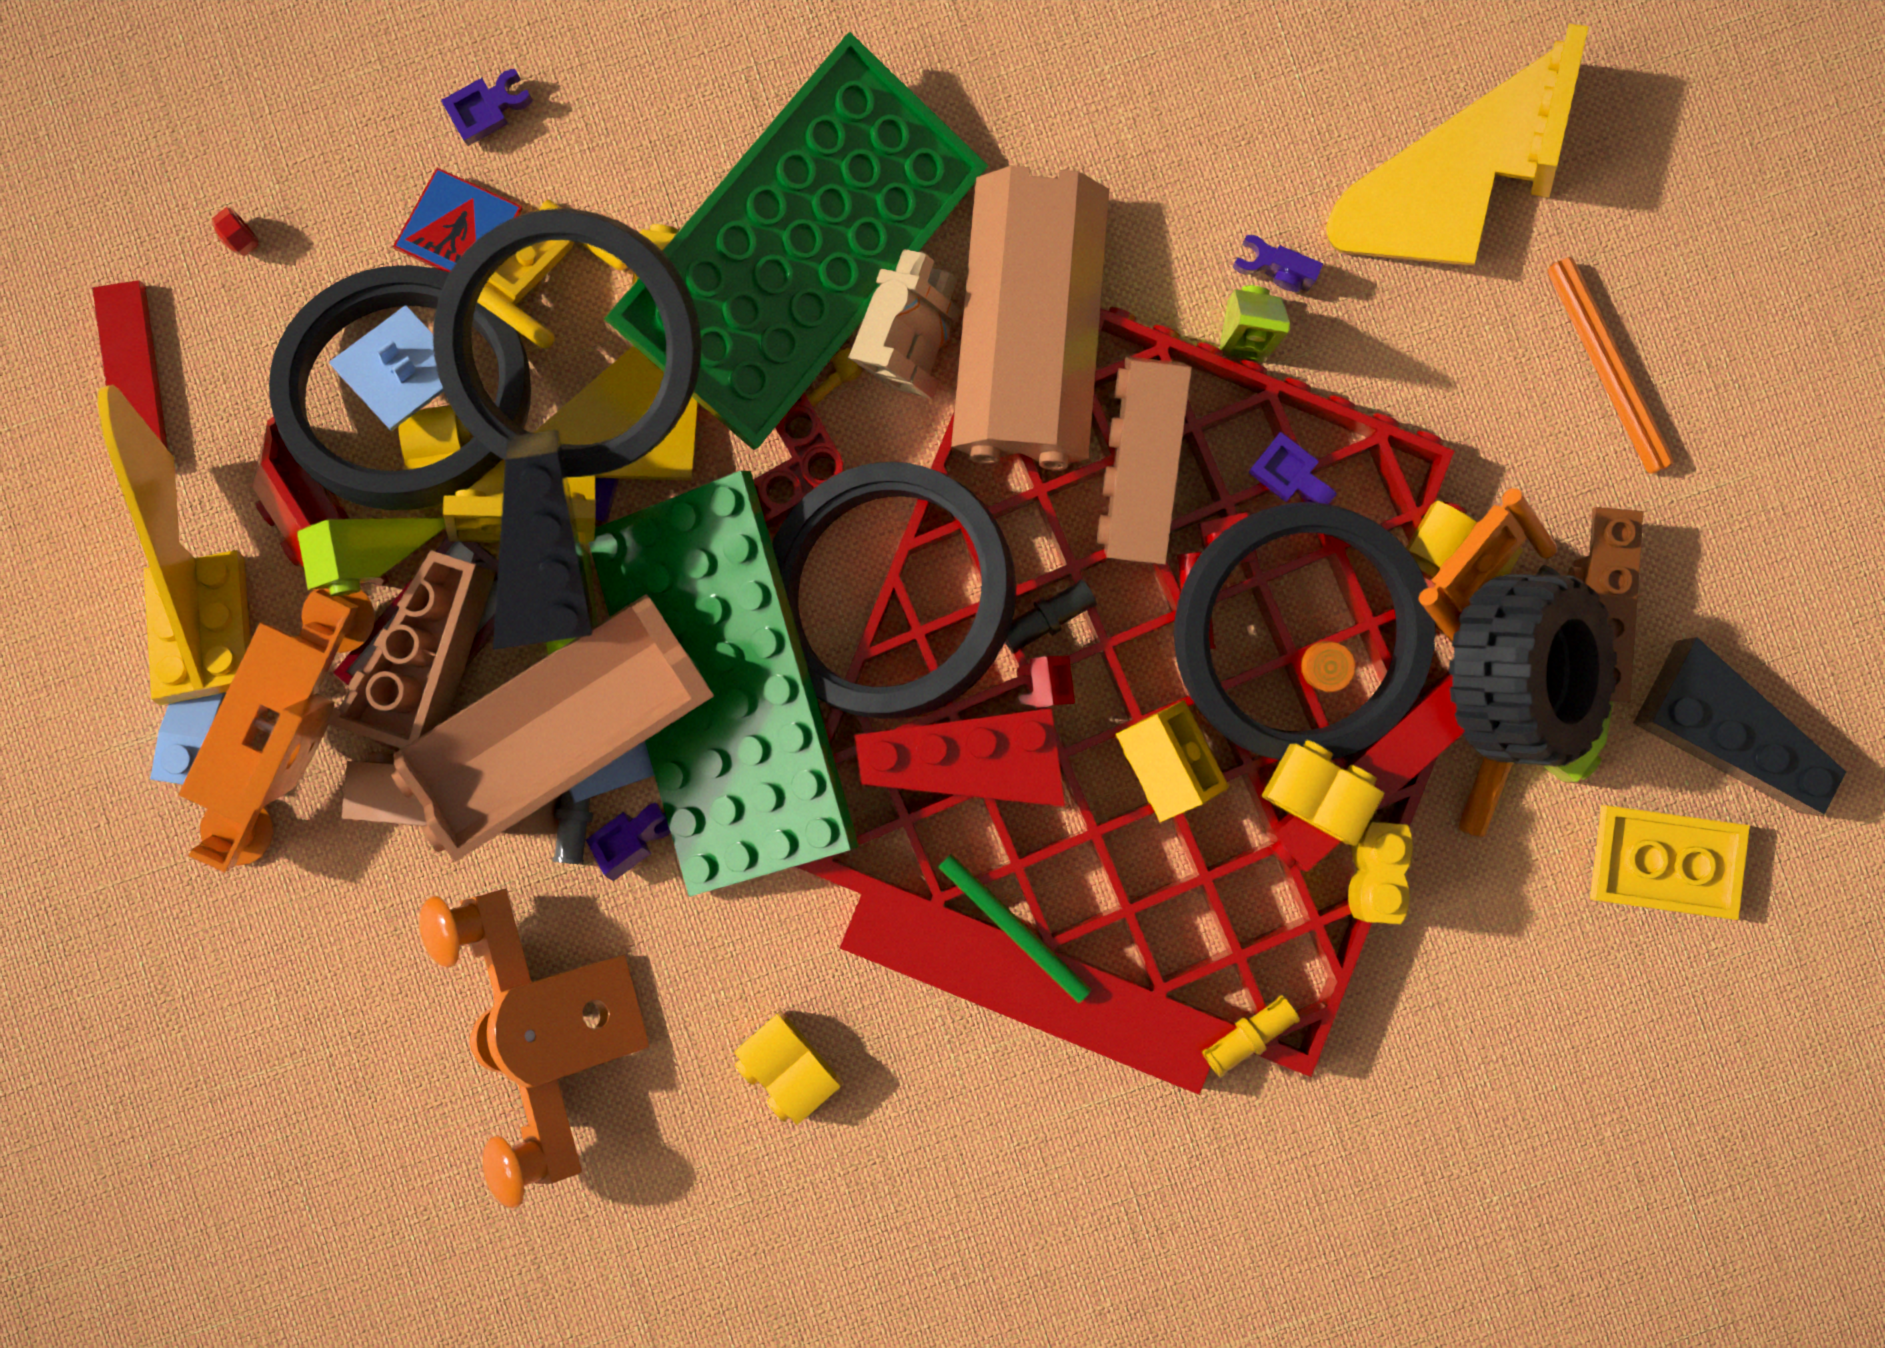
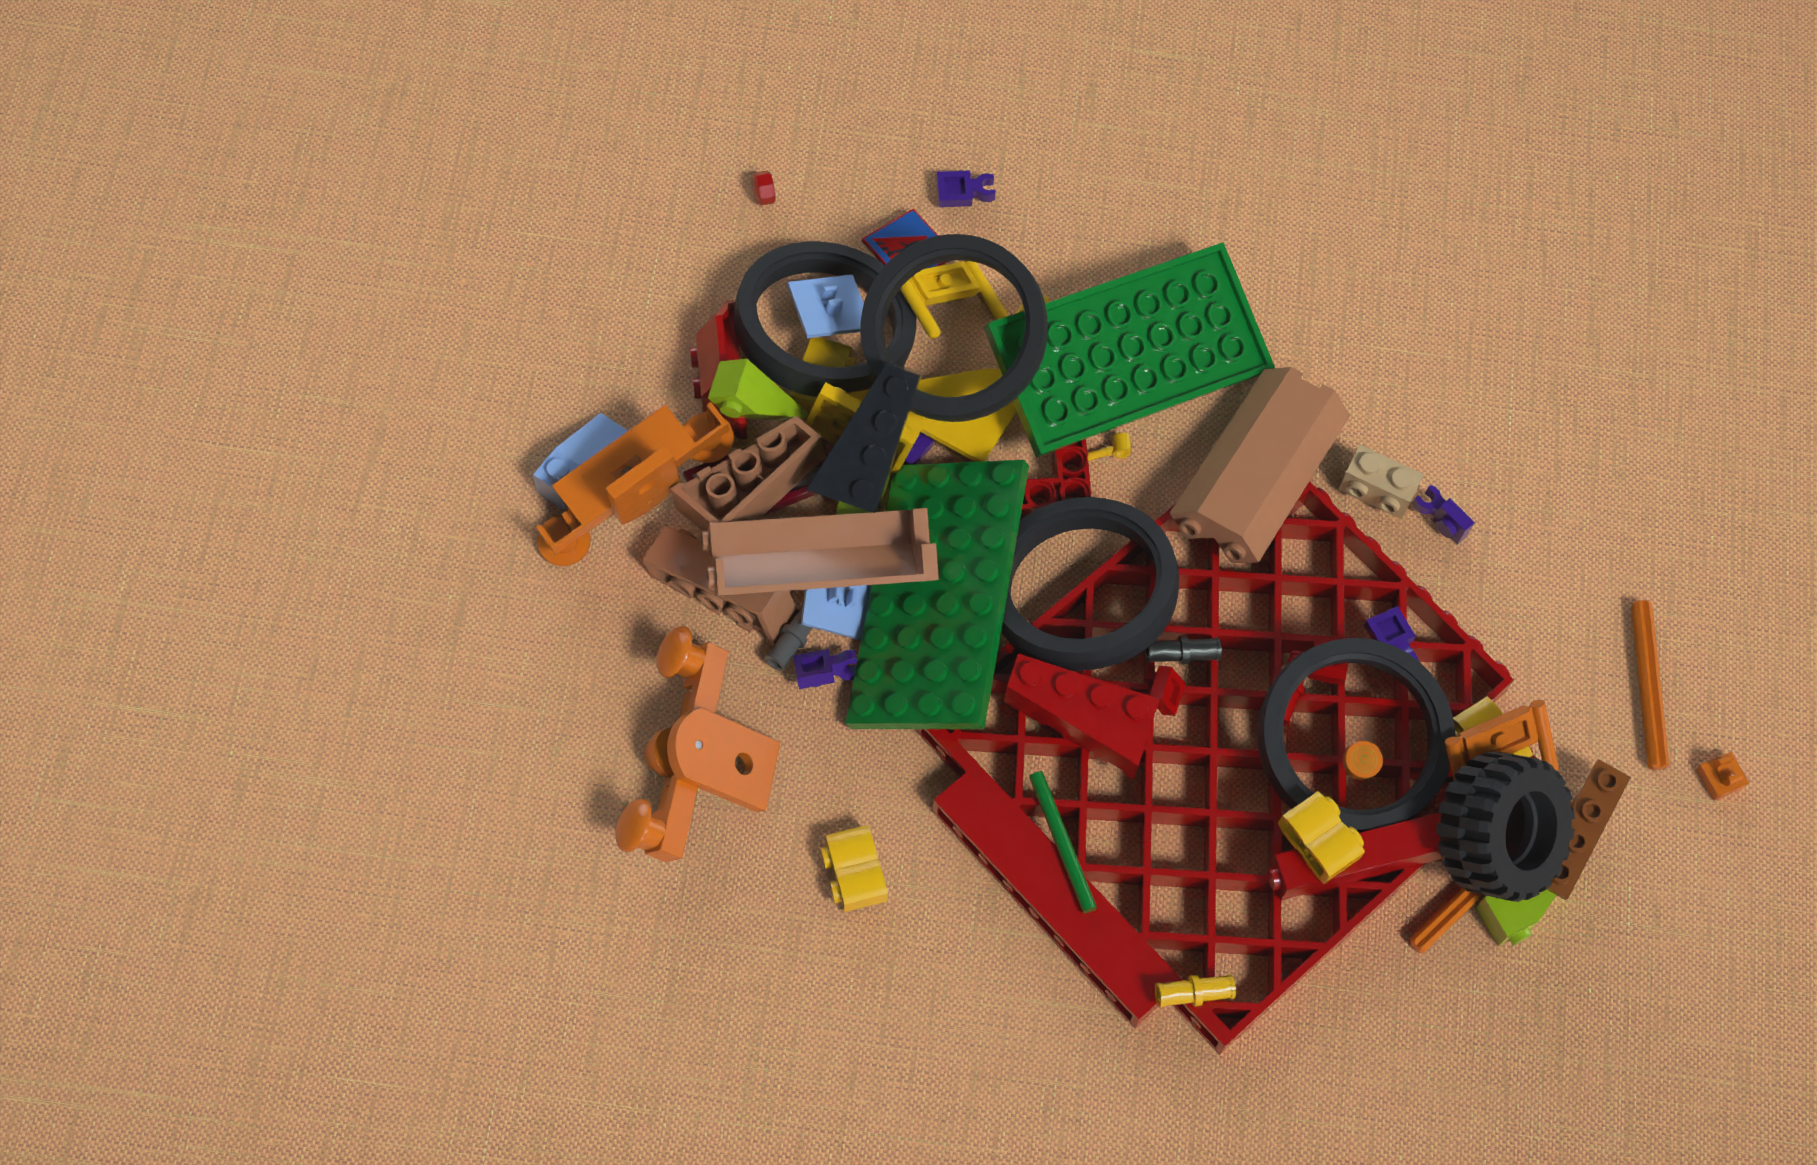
camera: 25 degrees right, 20 degrees down
(129, 349) = (649, 242): red tile -> none
(192, 604) = (614, 390): yellow piece -> none
(907, 324) = (1174, 434): tan hips -> none
(1145, 460) = (1297, 577): nougat wedge -> none
(1172, 761) = (1225, 776): yellow brick -> none
(1184, 261) = (1380, 481): none -> tan brick
(1253, 324) = (1408, 539): lime slope -> none
(1378, 886) = (1339, 917): yellow brick -> none
(1437, 191) = (1577, 517): yellow piece -> none
(1669, 862) = (1553, 1033): yellow plate -> none
(1731, 726) = (1639, 963): black wedge -> none
(1739, 441) = (1722, 776): none -> orange tile

